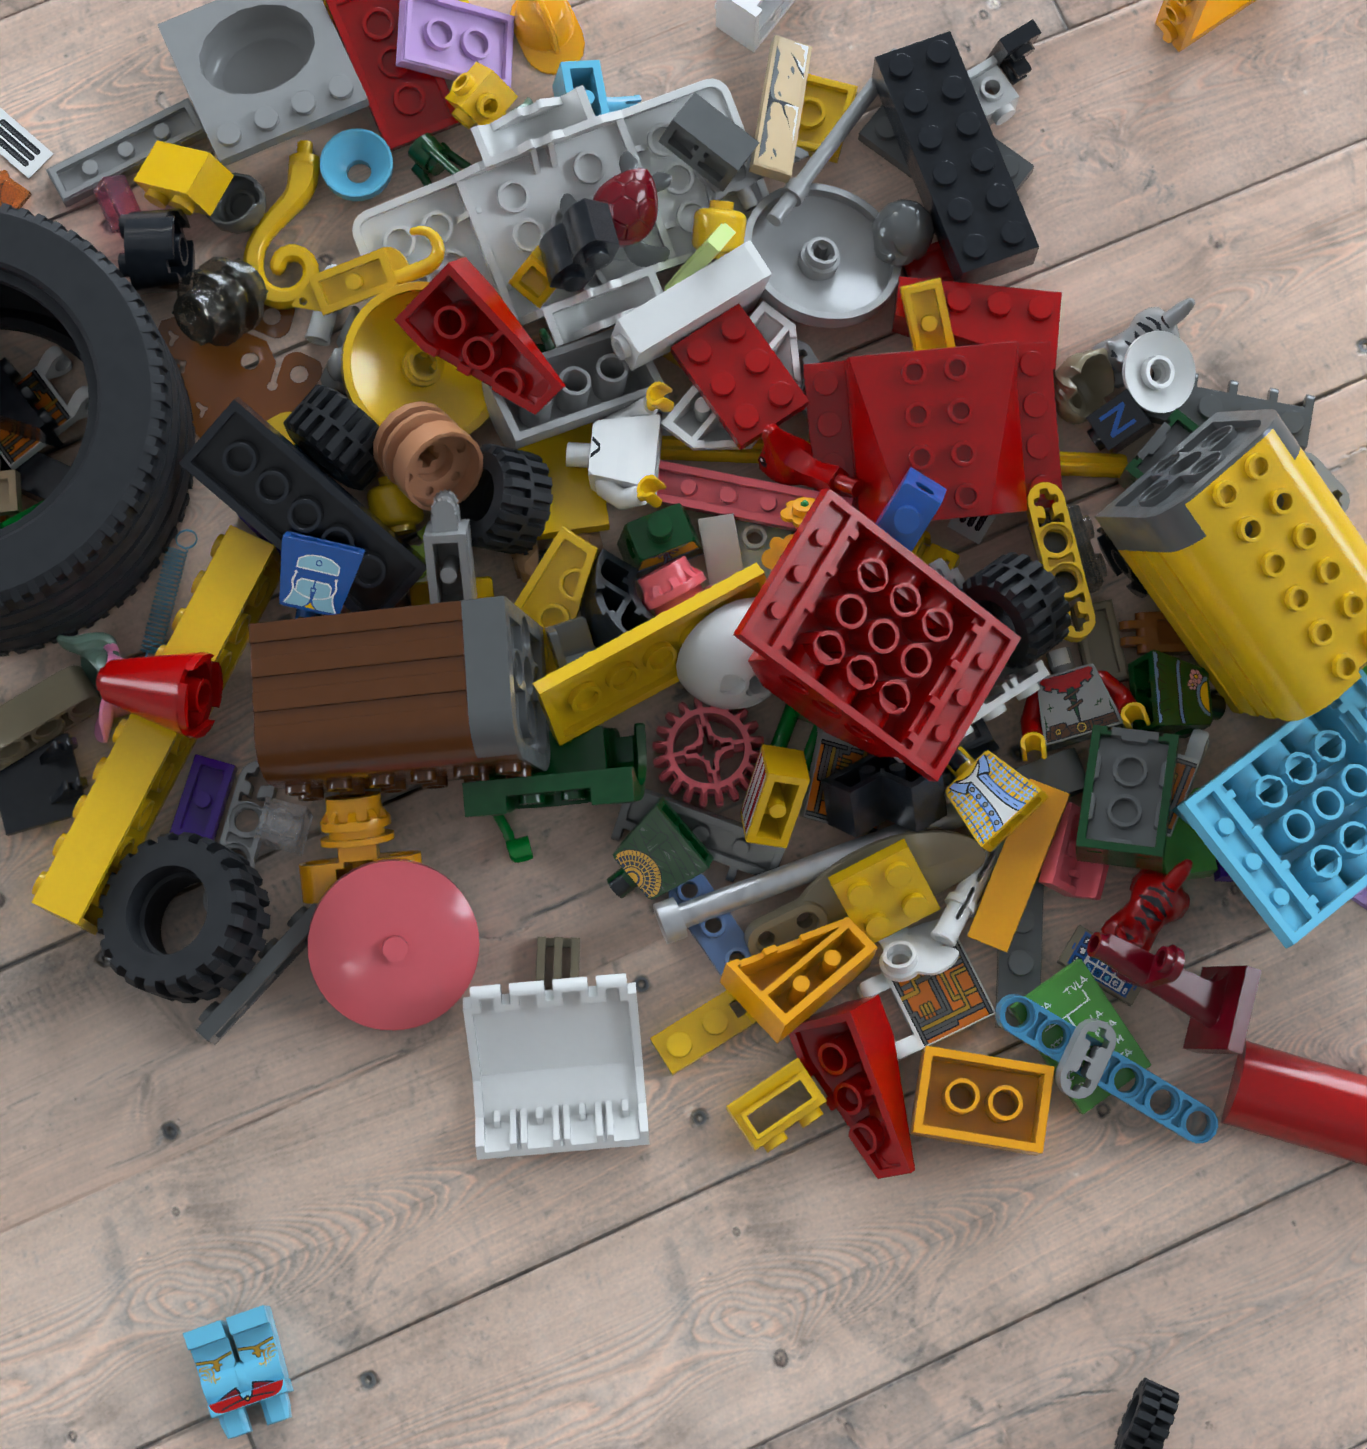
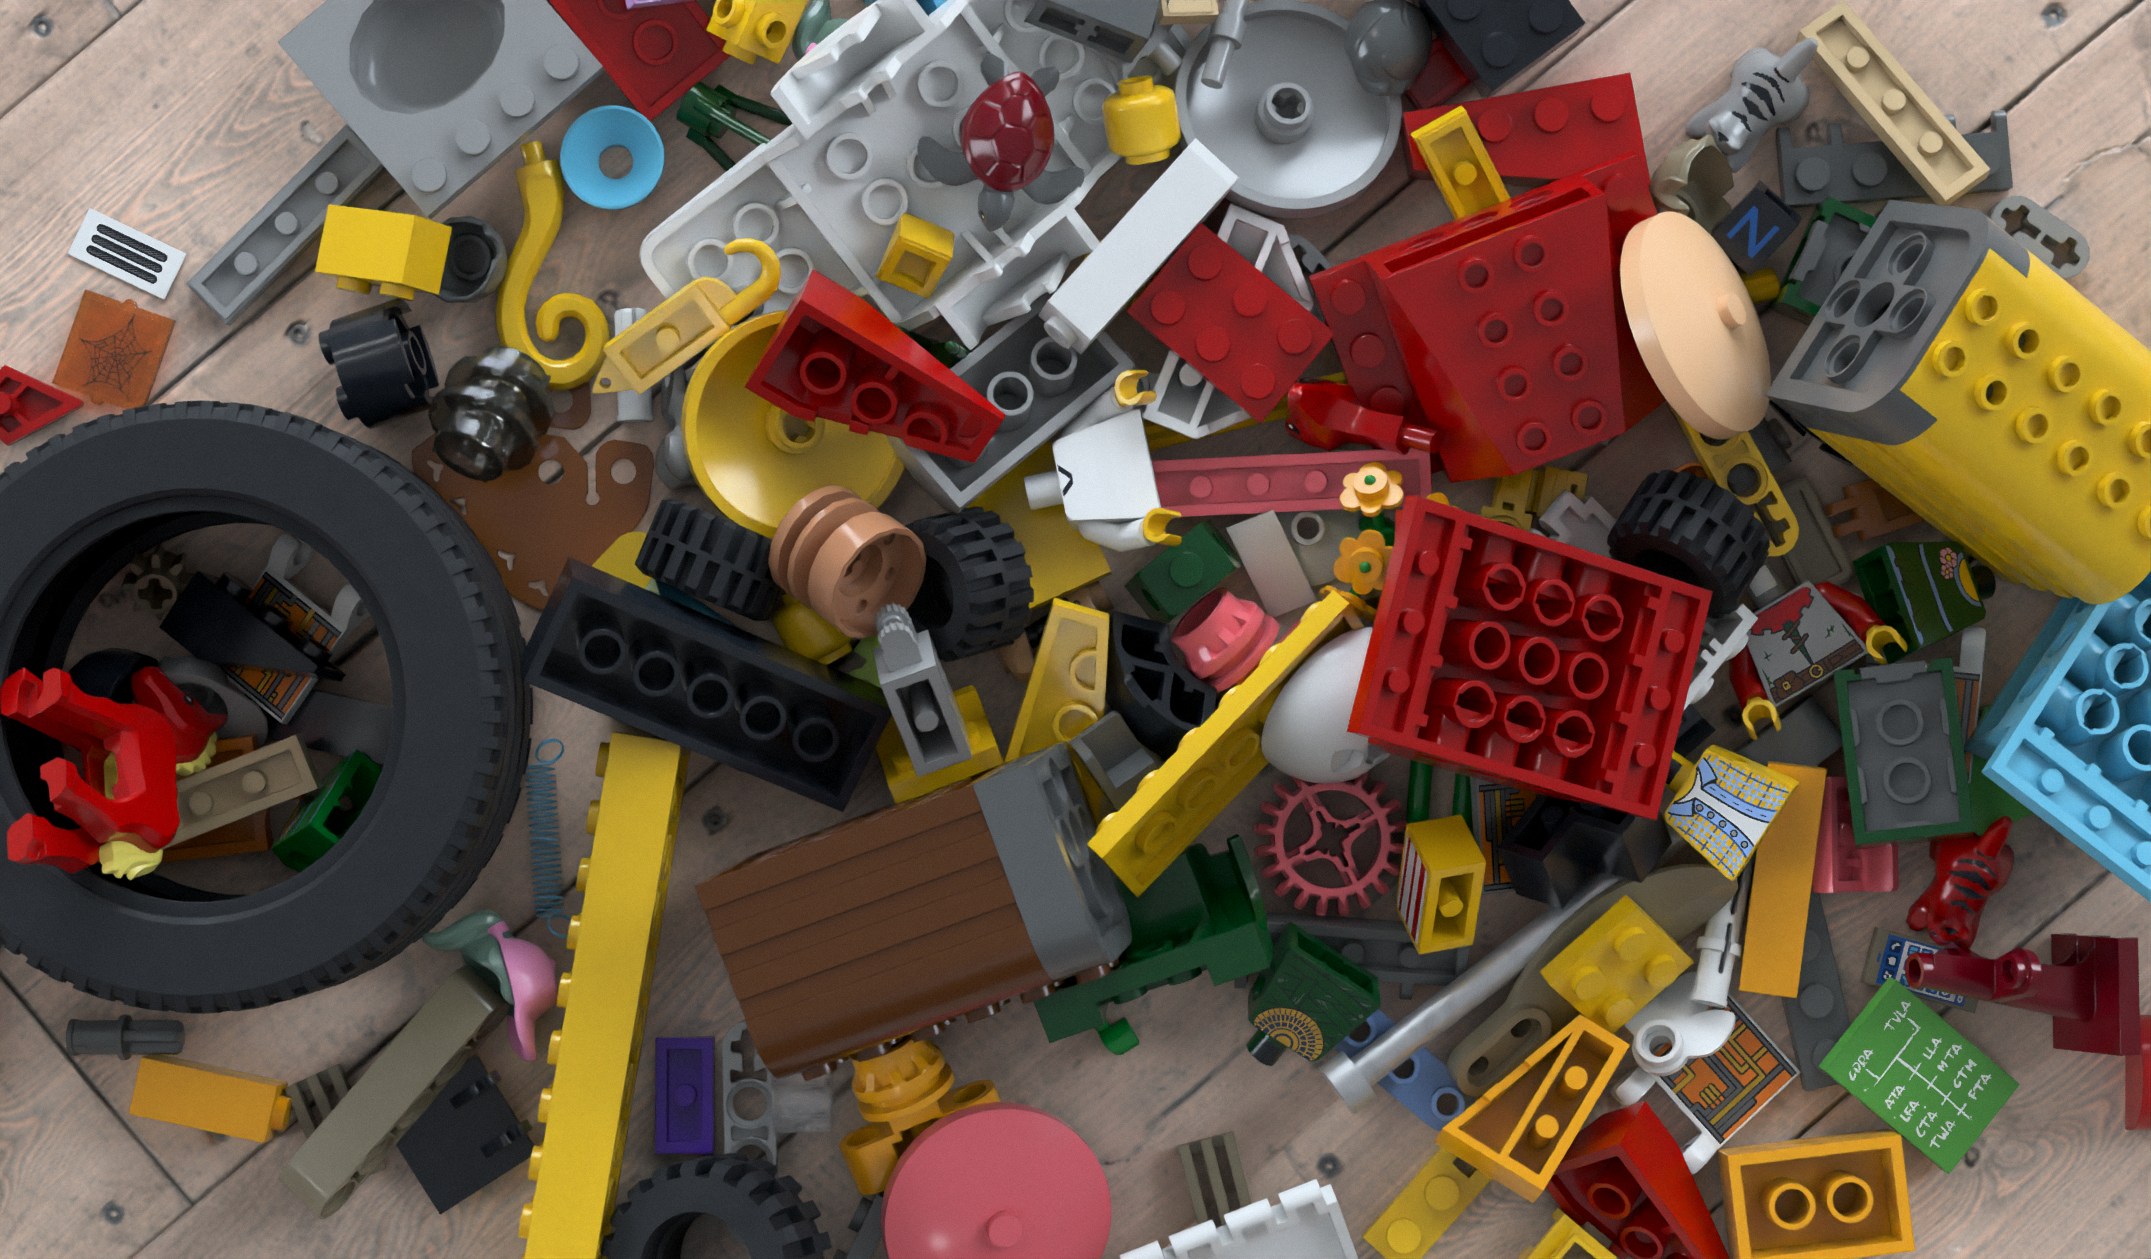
camera: 15 degrees left, 10 degrees up
(115, 199) = (302, 305): clear pink piece -> none
(165, 689) = (603, 991): red cone -> none
(316, 574) = (754, 774): blue torso -> none
(579, 245) = (965, 213): black brick -> none
(703, 254) = (1131, 178): yellowish green tile -> none
(911, 508) = (1517, 478): blue torso -> none
(1058, 459) = (1695, 325): none -> light nougat dish
(1094, 1063) = (1938, 1113): light grey beam -> none
(1145, 1082) = (1963, 1117): dark azure beam -> none
(1172, 371) = (1808, 142): white dish -> none
(1234, 357) = (1894, 105): none -> tan plate

